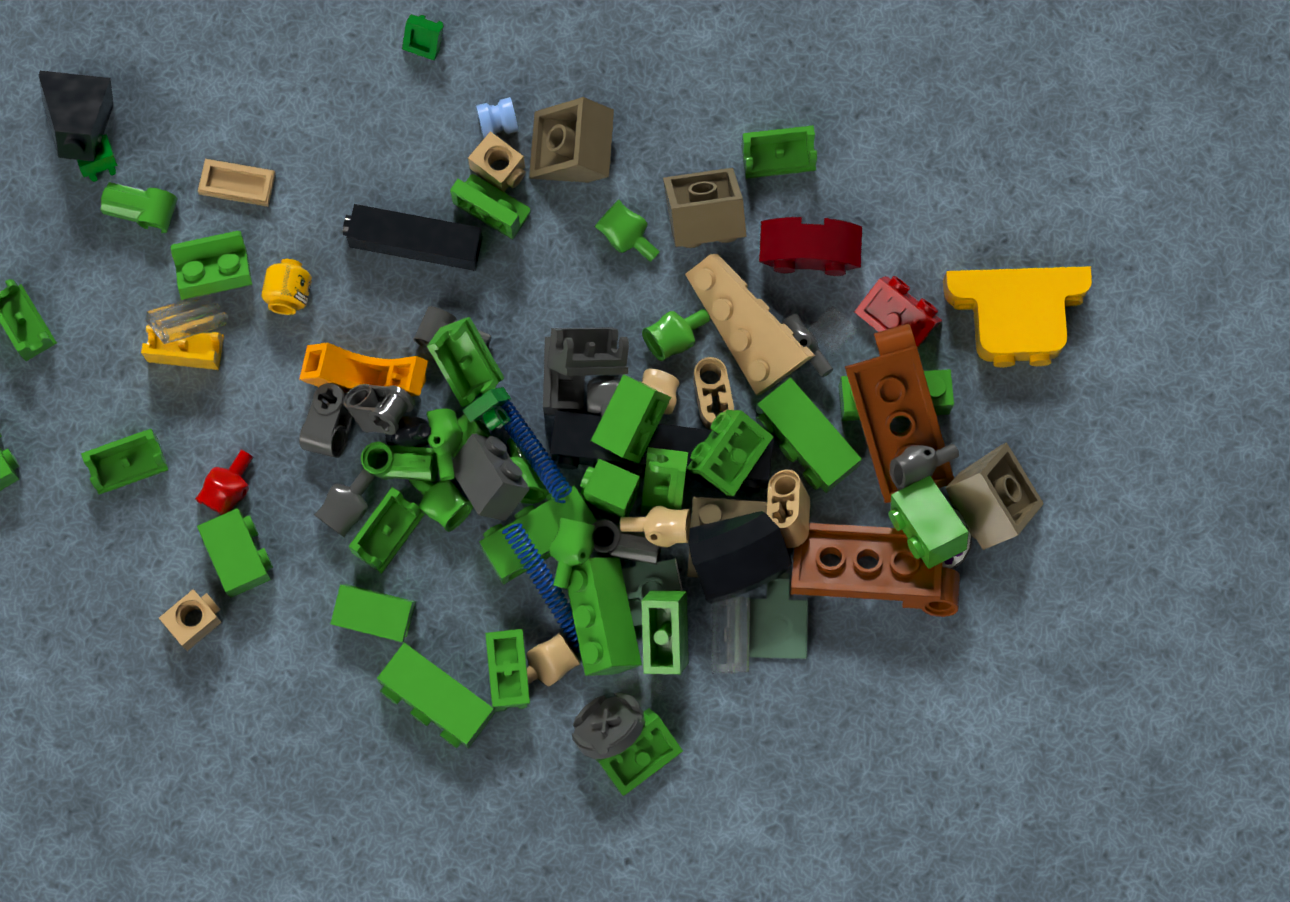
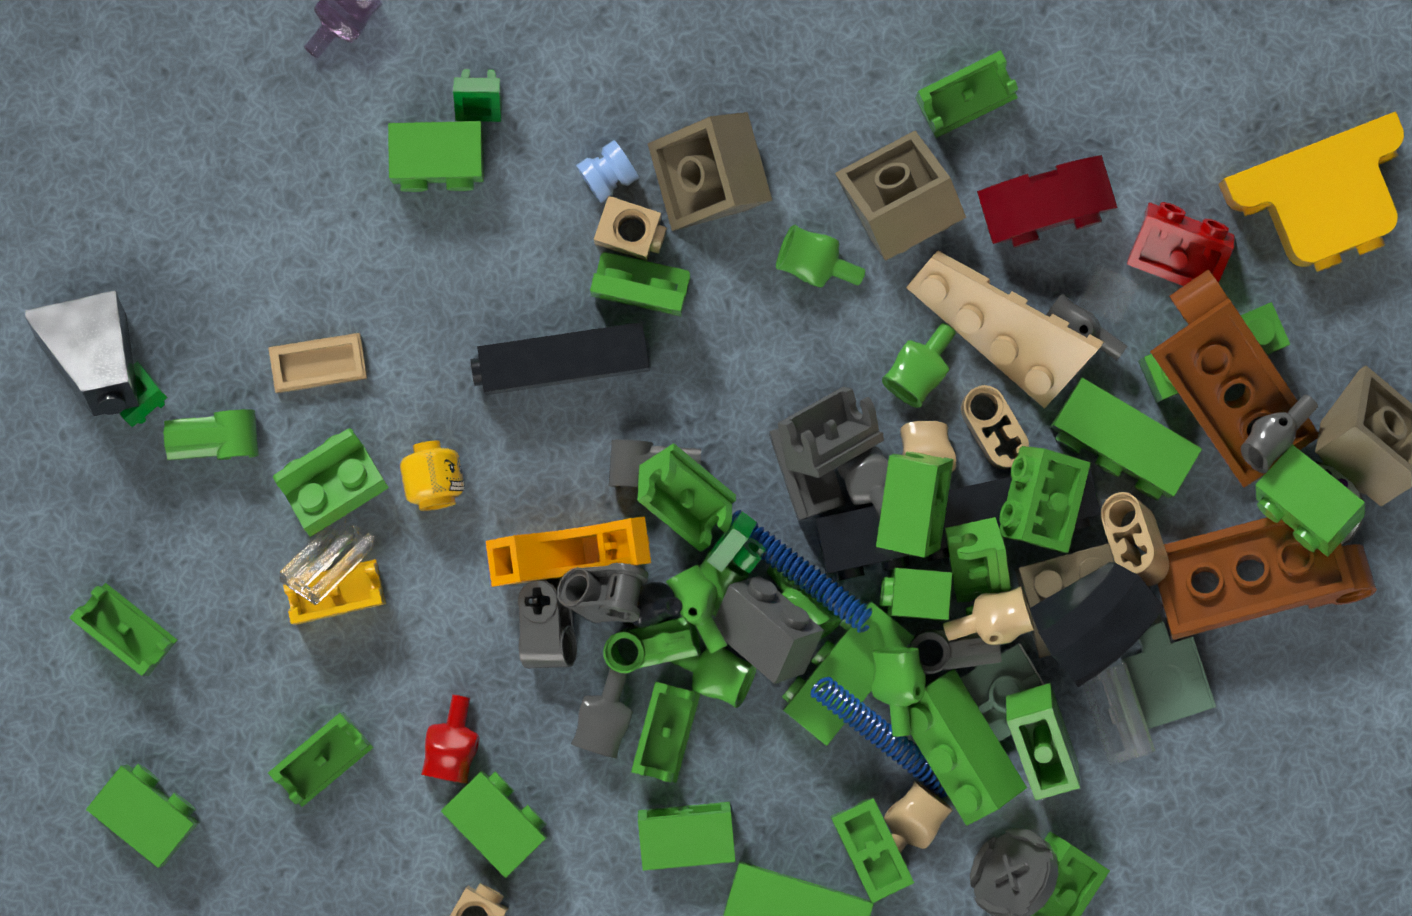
camera: 20 degrees left, 10 degrees up
(378, 64) = (436, 154): none -> bright green brick

